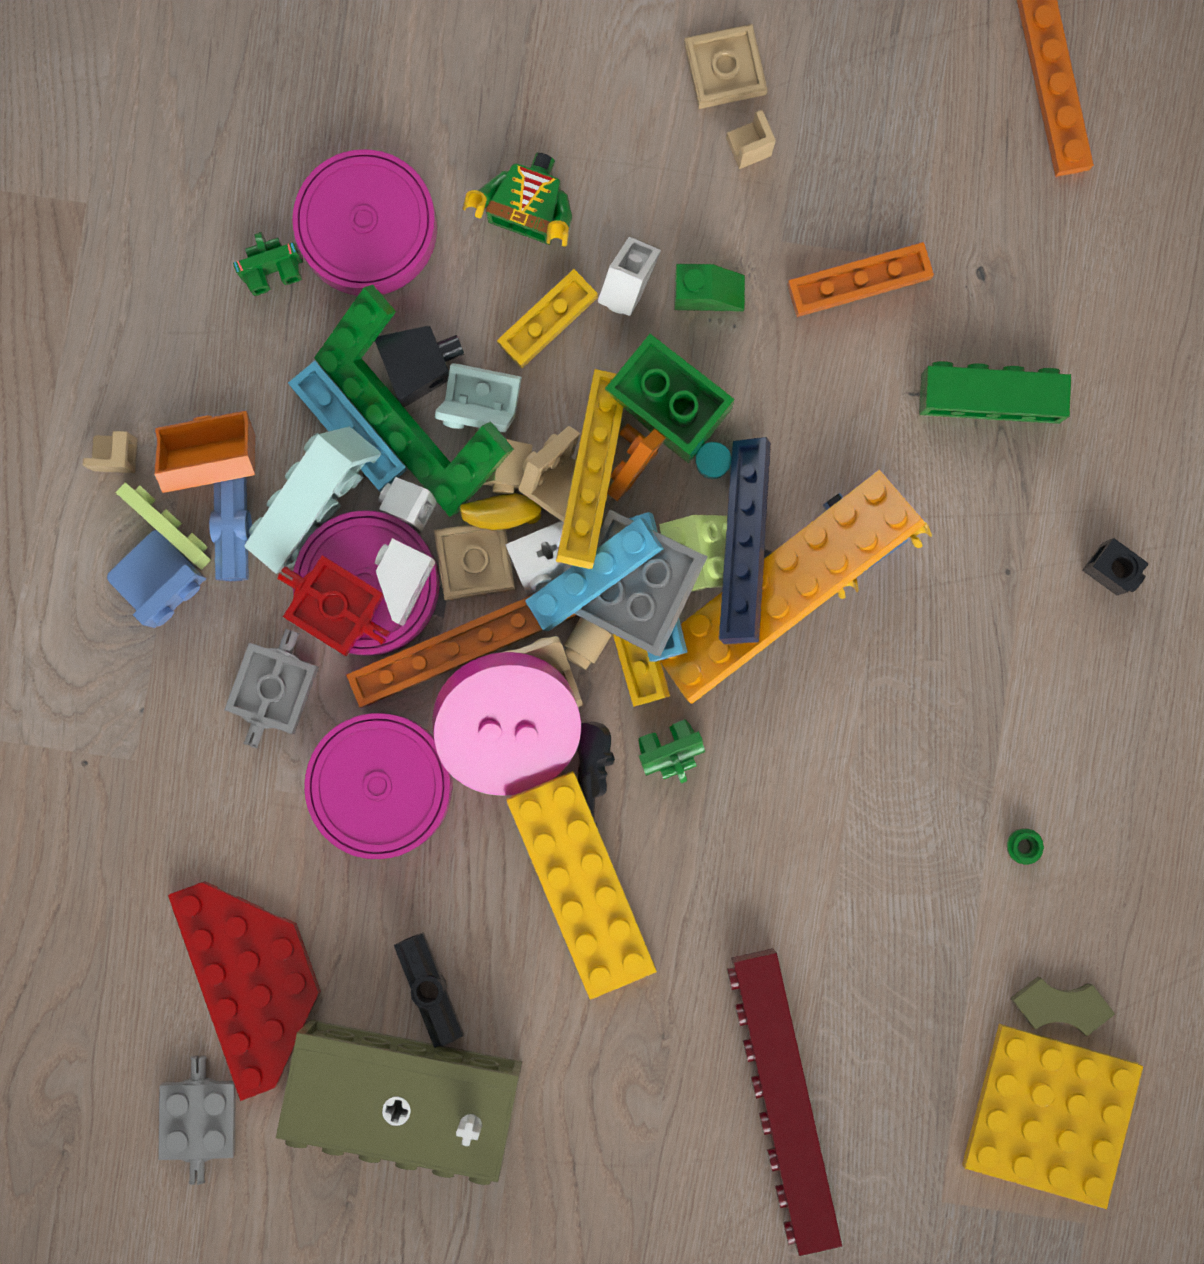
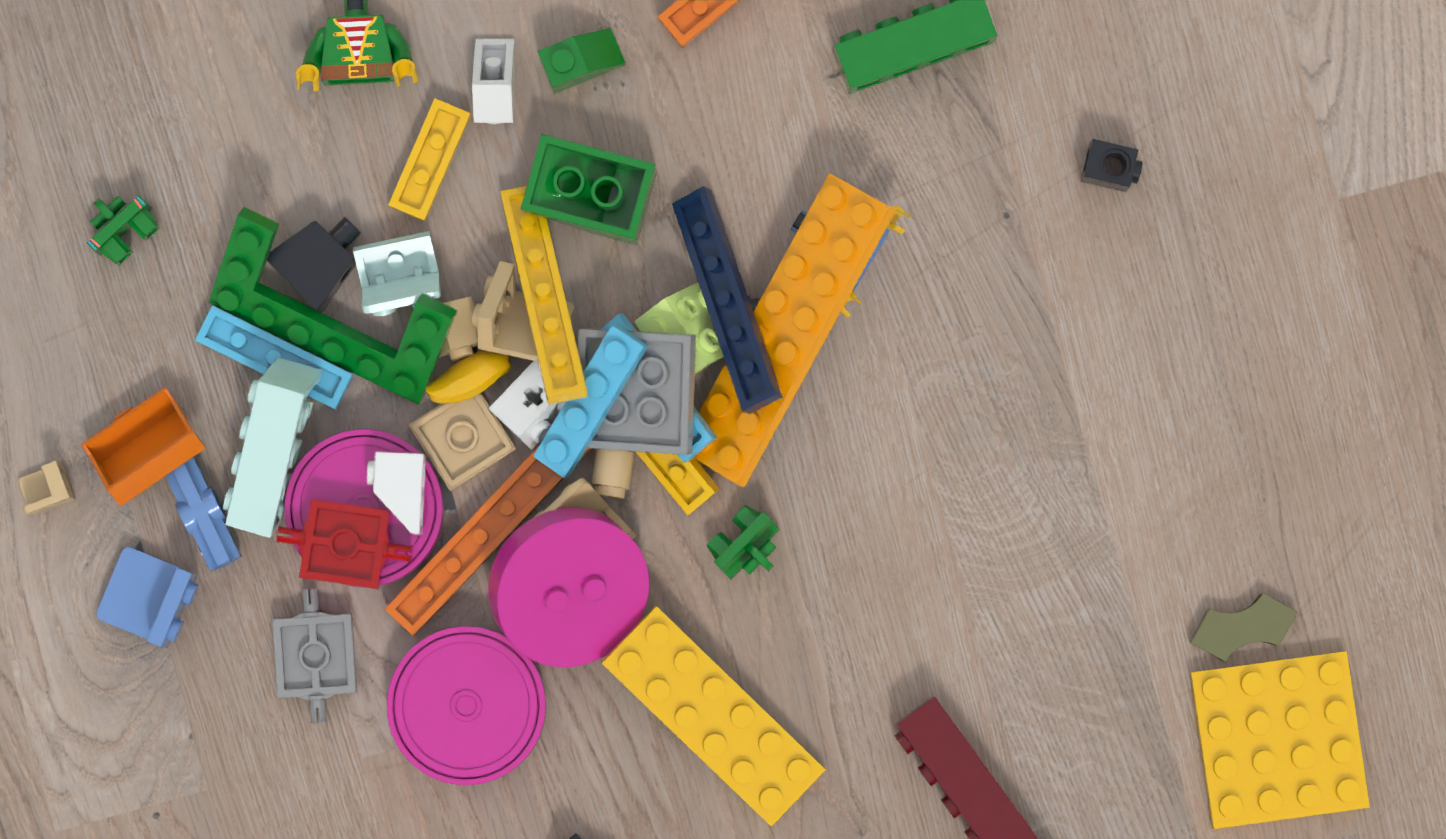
camera: 30 degrees left, 0 degrees up
(165, 524) = (134, 536): yellowish green plate -> none
(365, 222) = (201, 142): dark pink brick -> none
(407, 503) = (370, 409): white slope -> none
(593, 757) = (670, 583): black piece -> none
(642, 451) = (585, 256): orange plate -> none
(713, 460) = (660, 231): teal tile -> none
(1035, 850) = (1151, 481): green plate -> none

